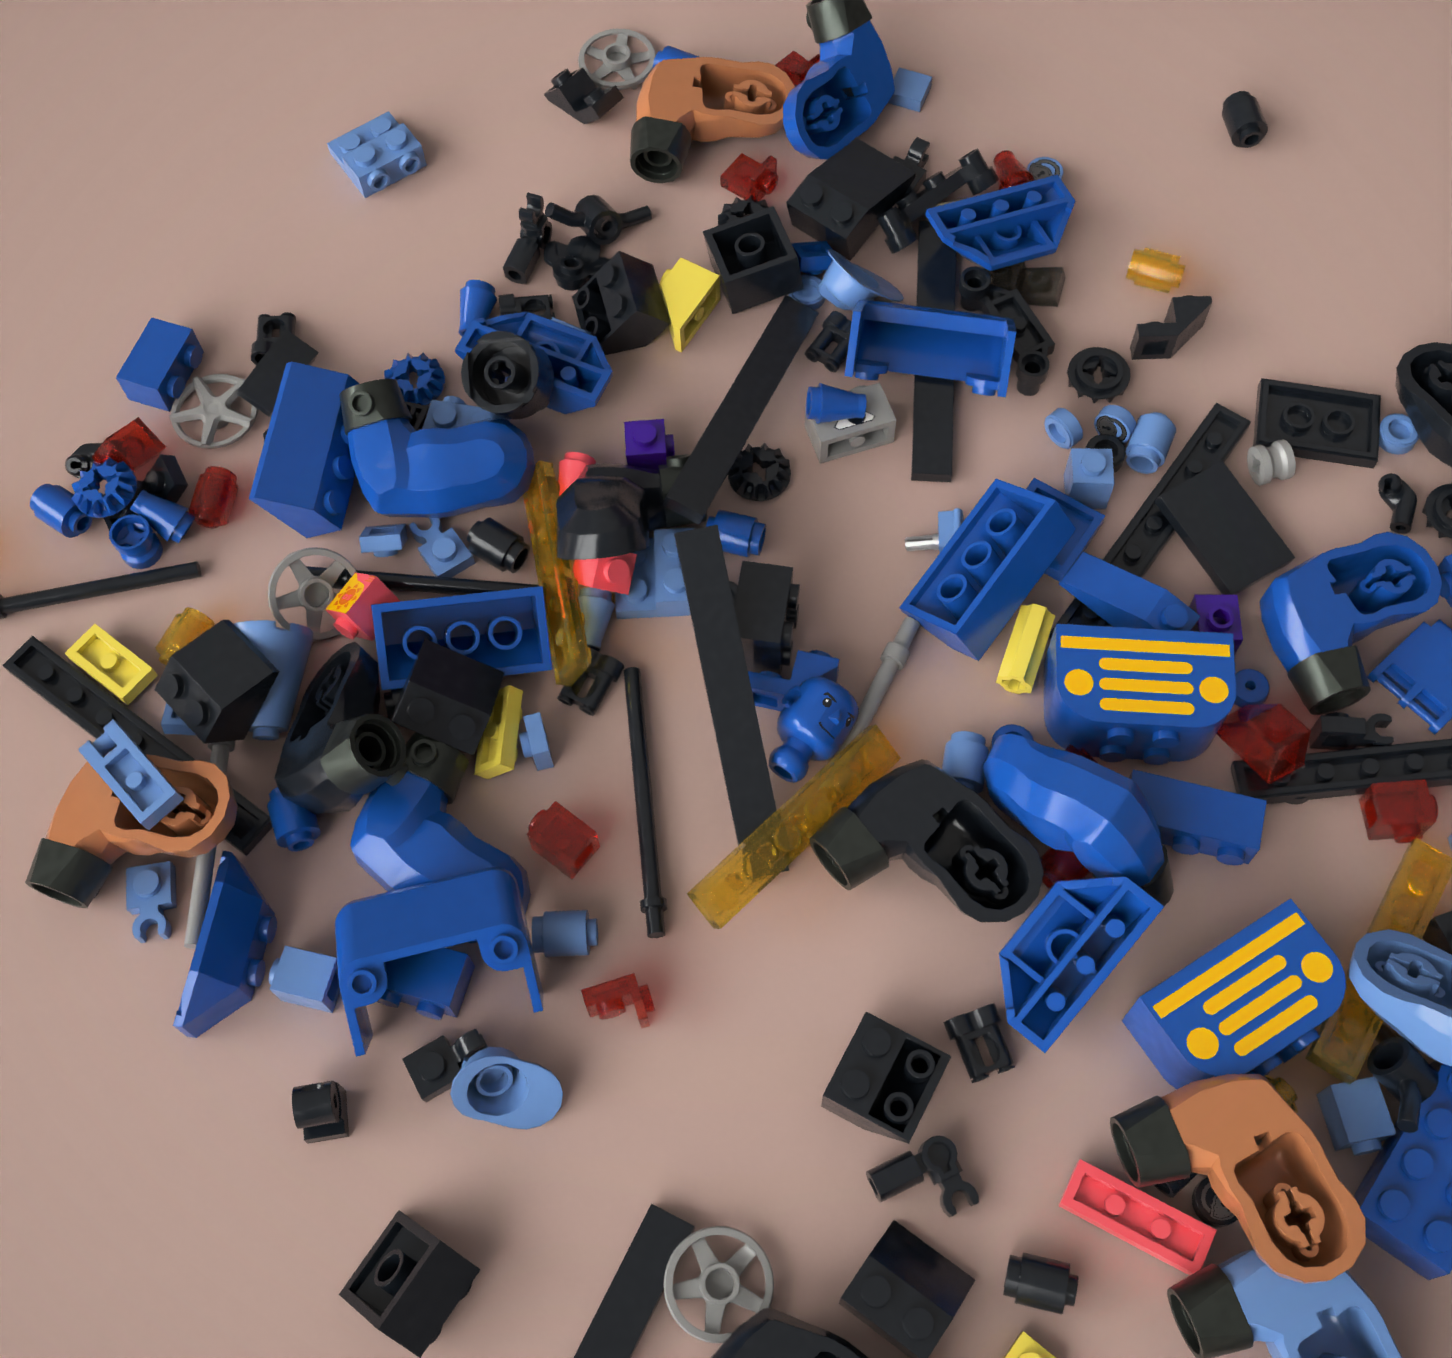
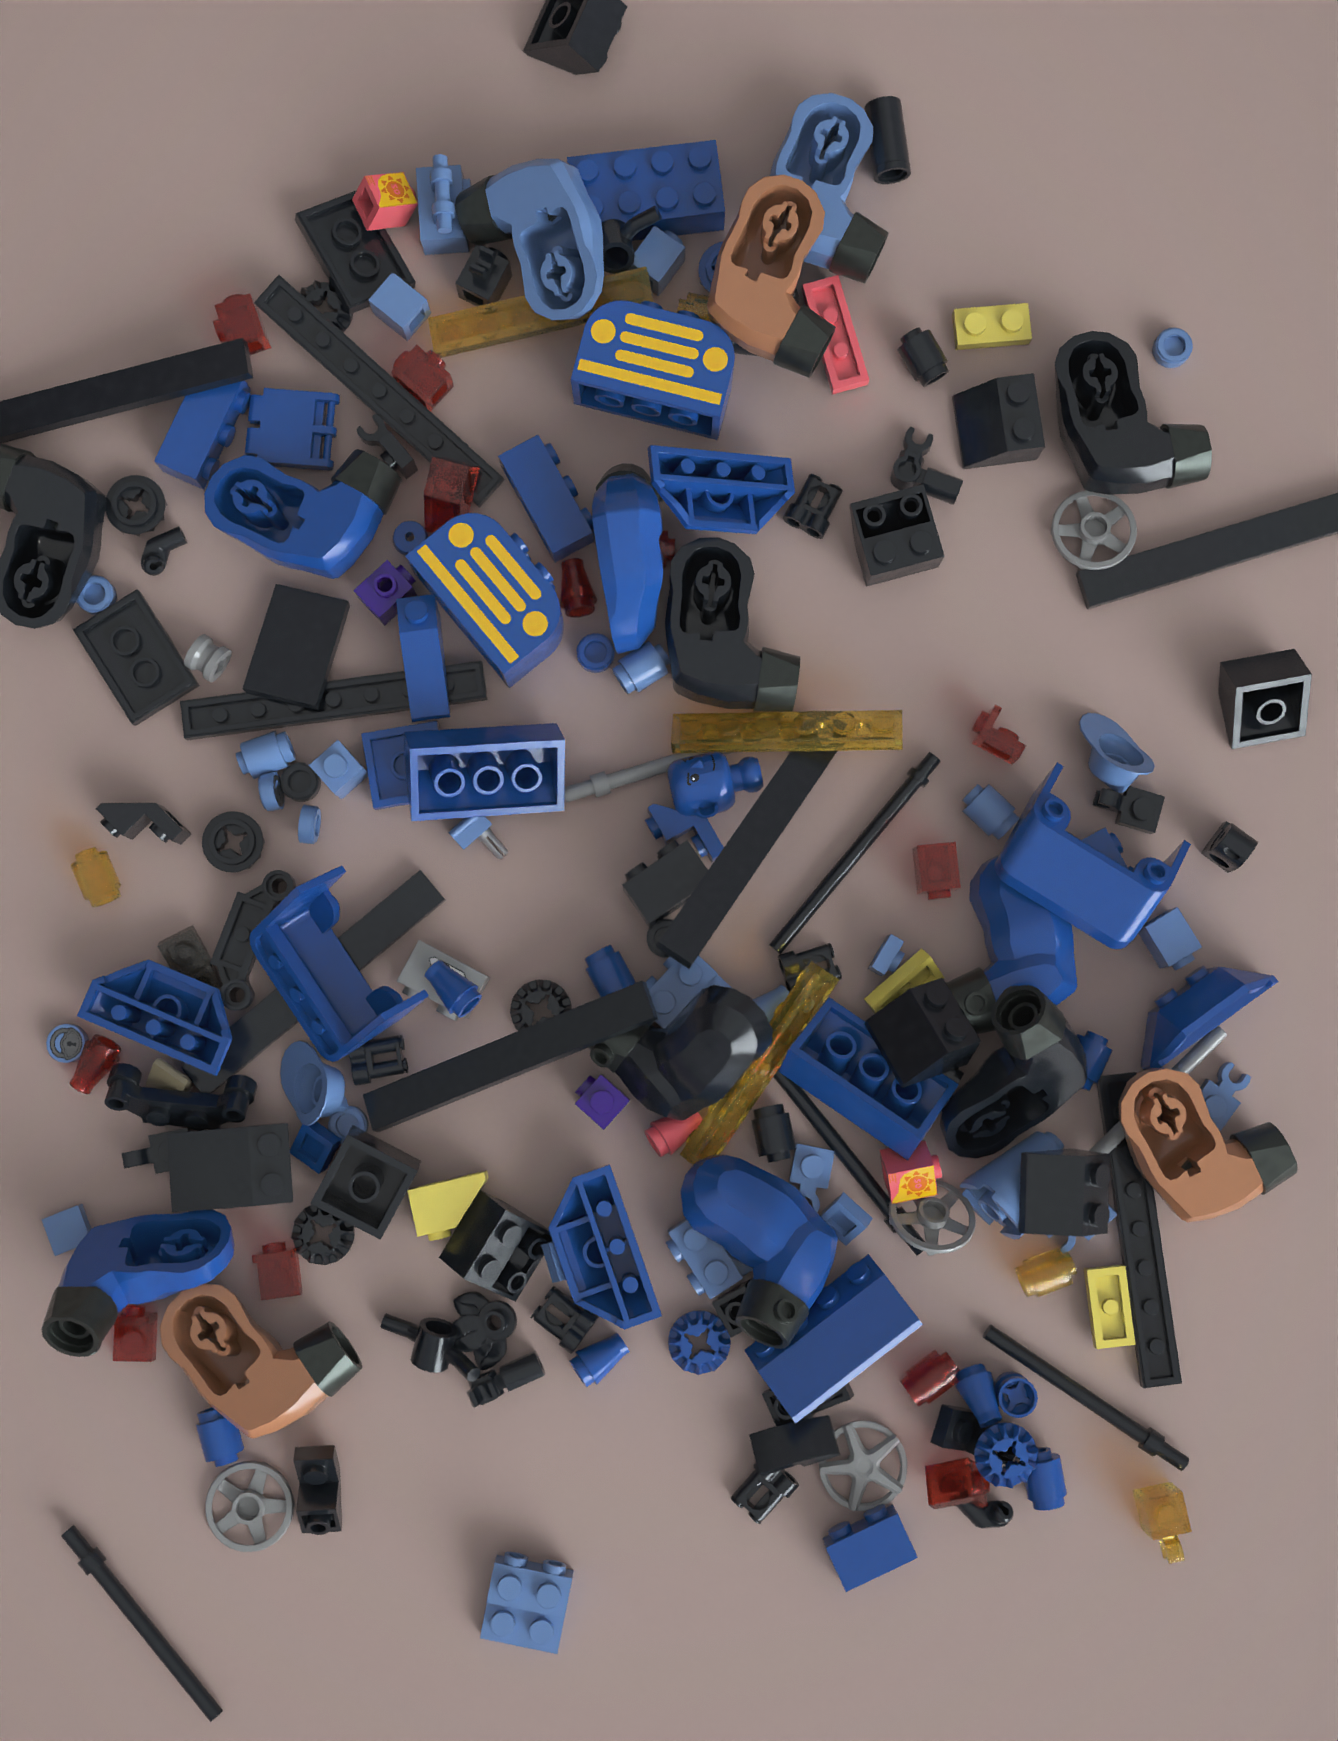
camera: 140 degrees left, 20 degrees up
(131, 775) = (1181, 1166): medium blue plate -> none
(506, 355) = (656, 1238): black brick -> none
(1025, 649) = (517, 701): light yellow axle -> none

